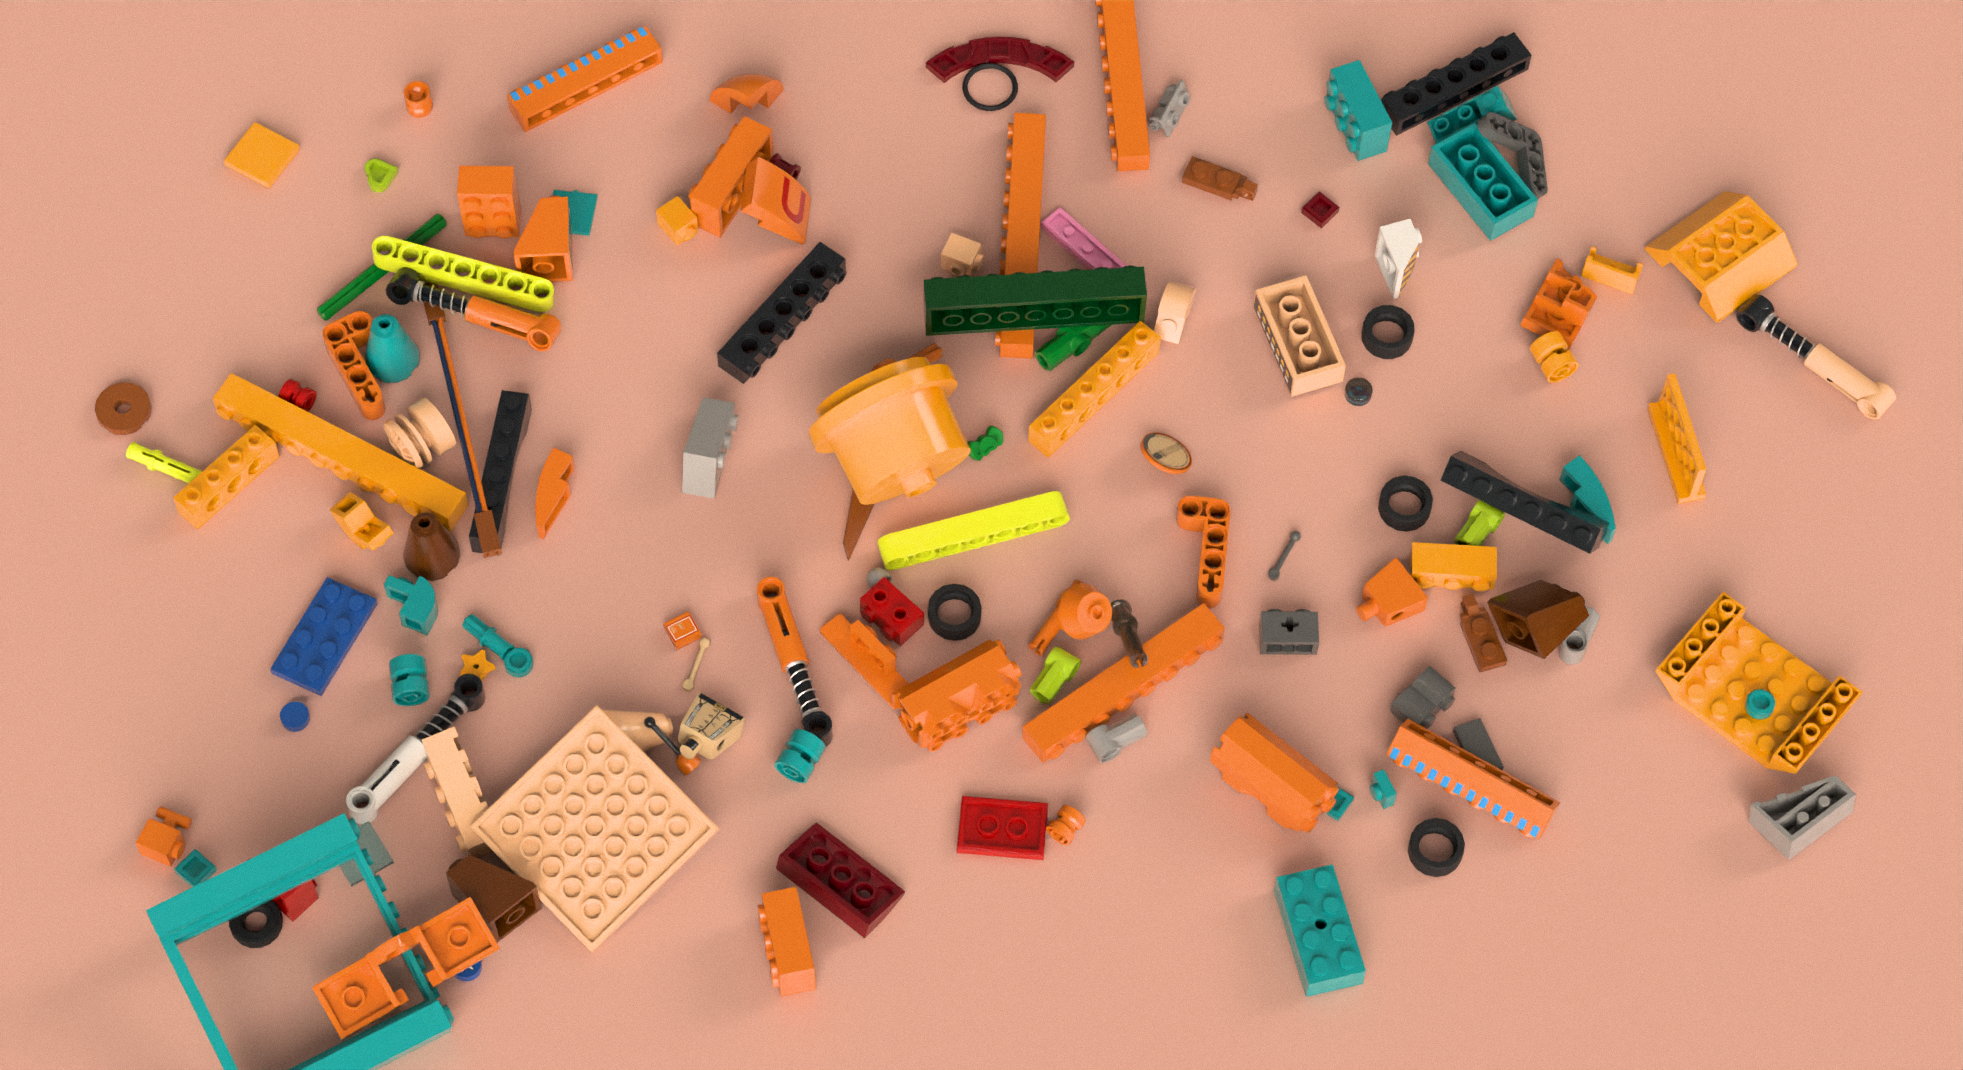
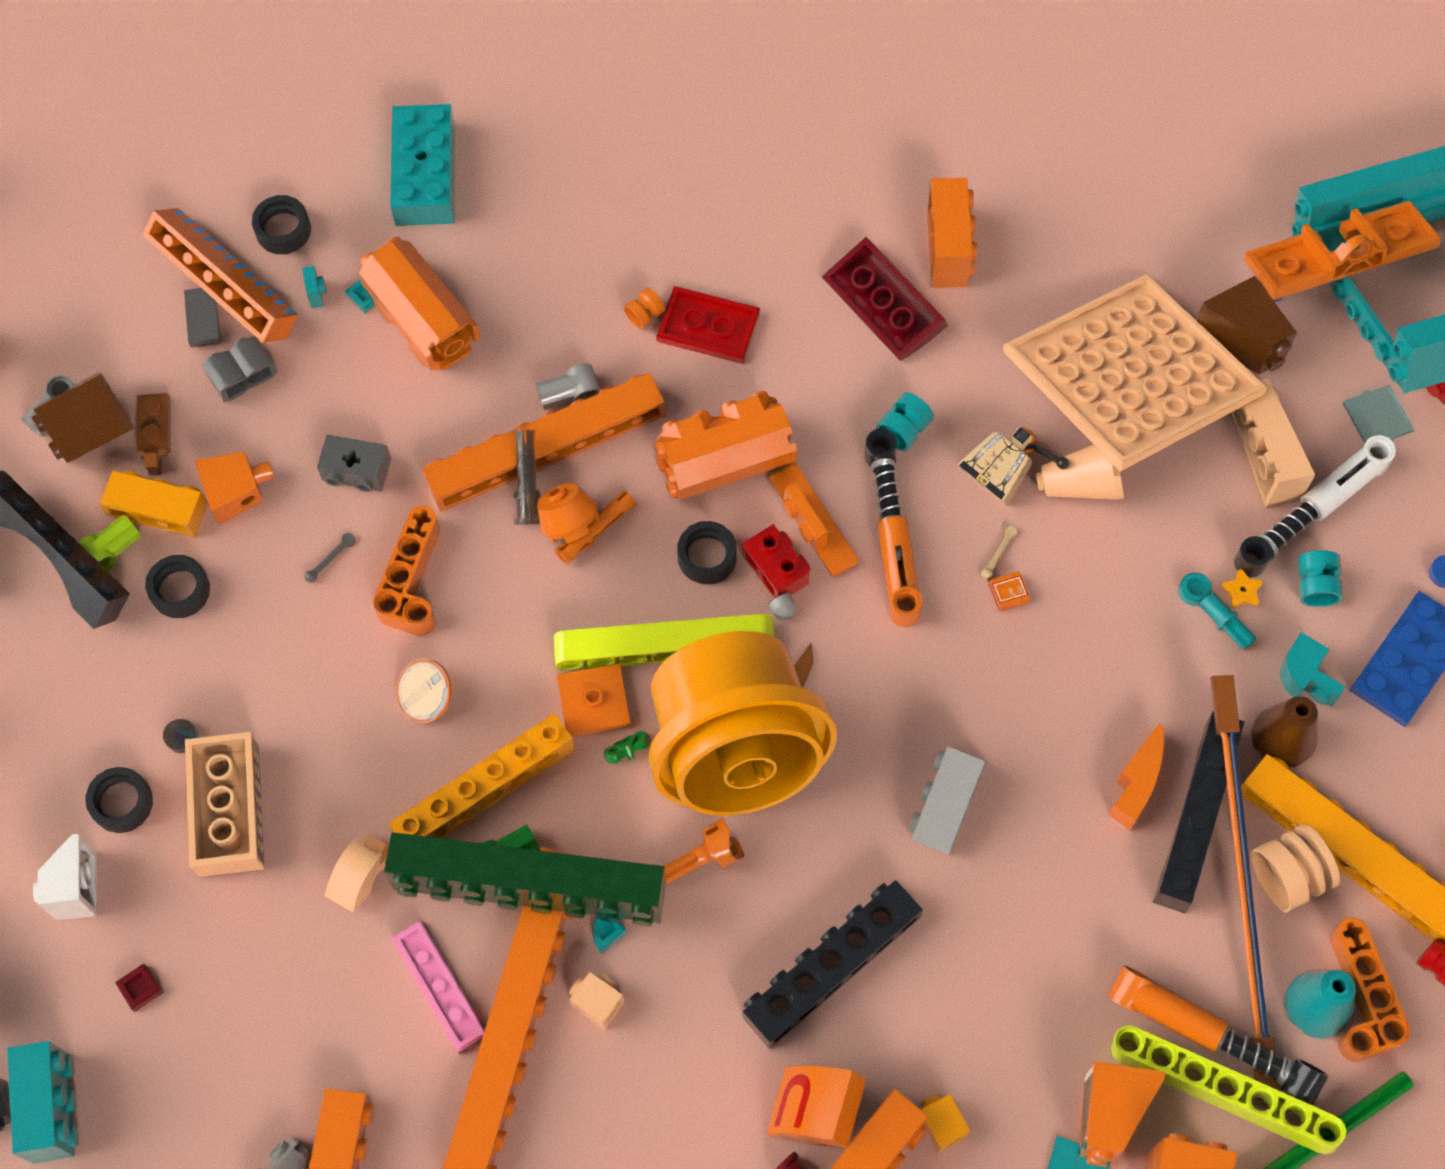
camera: 165 degrees left, 5 degrees up
(360, 523) = (1365, 775): light orange brick -> none
(1021, 475) = (593, 700): none -> orange plate
(1058, 669) = (610, 469): lime piece -> none
(1218, 180) = (250, 1055): dark orange hinge -> none

